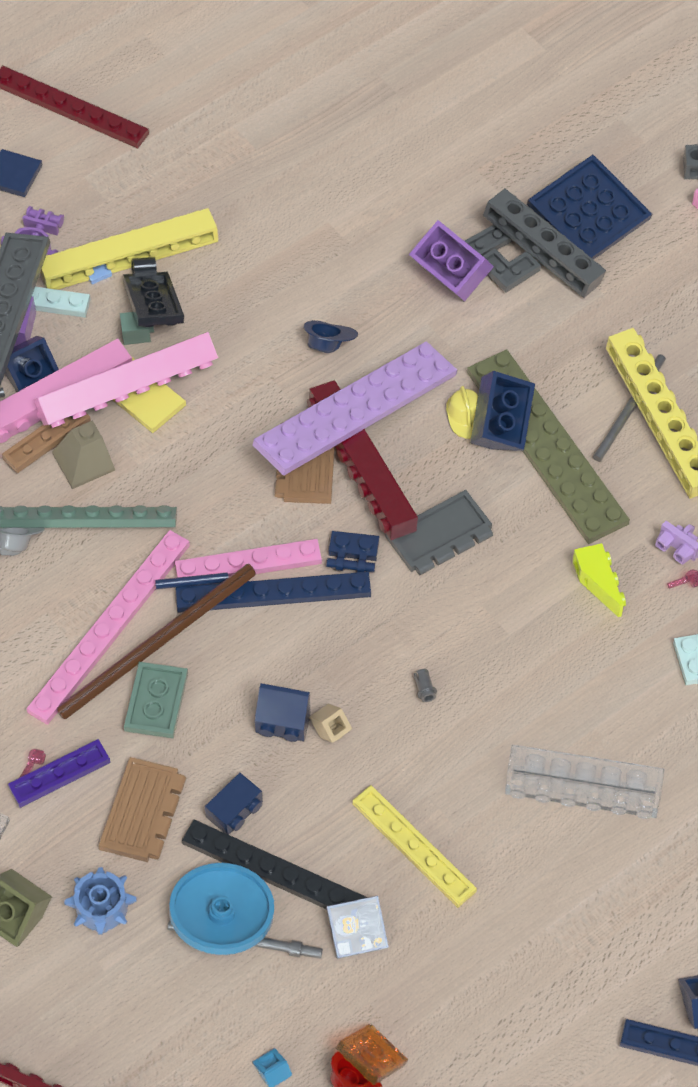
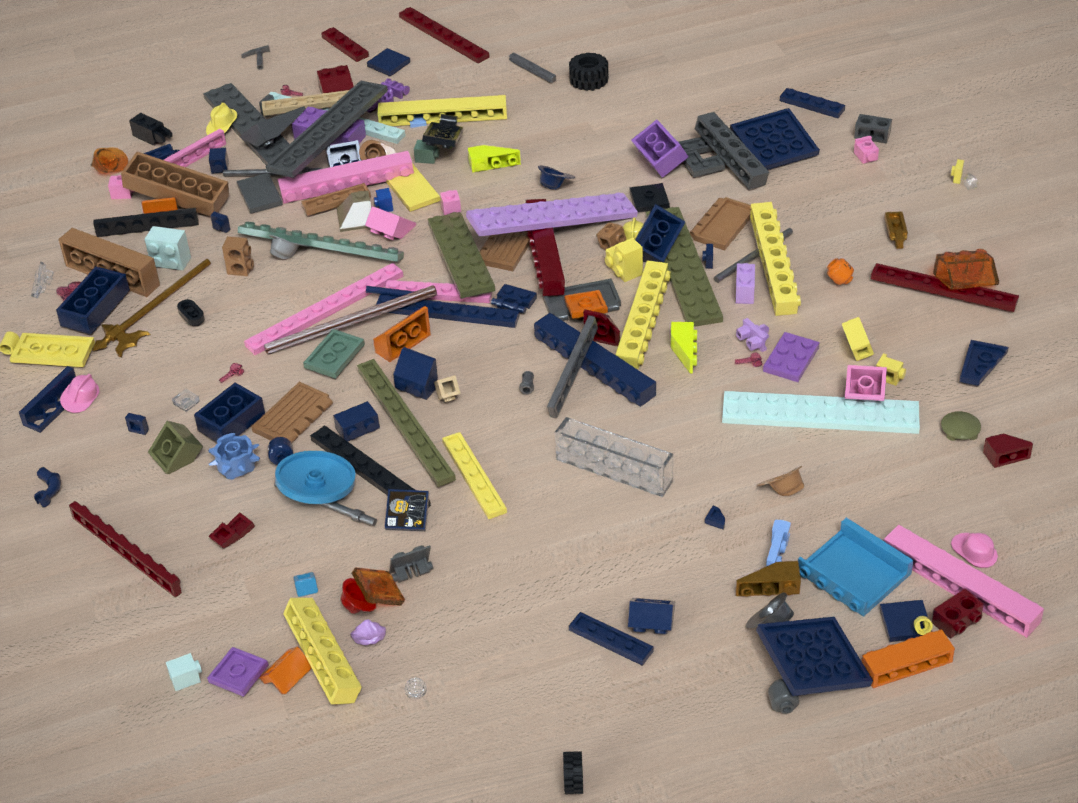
camera: 20 degrees right, 15 degrees down
(59, 773) = (249, 380): dark purple plate -> none
(65, 837) = (229, 412): none -> dark blue brick
(71, 346) = (374, 149): none -> medium nougat piece
(114, 426) = (383, 200): none -> blue plate
(125, 379) = (402, 172): bright pink brick -> none
(138, 465) = (388, 223): none -> bright pink slope
(145, 1015) = (236, 529): none -> dark red slope
(155, 875) = (279, 449): none -> dark blue head
(208, 413) = (450, 202): none -> bright pink brick
(218, 143) = (532, 67): none -> flat silver axle
(229, 318) = (492, 157): none -> neon yellow slope
(235, 649) = (403, 334): none -> orange slope
(257, 497) = (461, 255): none -> olive plate
(296, 787) = (406, 423): none -> olive plate
(301, 125) = (588, 71): none -> black tyre
(405, 1002) = (402, 561): none -> dark grey hinge
(442, 422) = (610, 235): none -> medium nougat brick
(452, 543) = (587, 300): none -> orange tile
(461, 340) = (648, 195): none -> black plate
(475, 458) = (626, 259): none -> light yellow brick
(481, 654) = (572, 367): none -> flat silver tile
(488, 577) = (607, 330): none -> dark red slope
(496, 628) = (598, 360): none -> dark blue brick
(533, 616) = (643, 312): none -> light yellow brick
(570, 362) = (722, 223): none -> medium nougat hinge
(576, 425) = (708, 256): none -> dark blue plate
(611, 130) = (812, 103): none -> dark blue plate
(639, 461) = (745, 283): none -> lavender brick

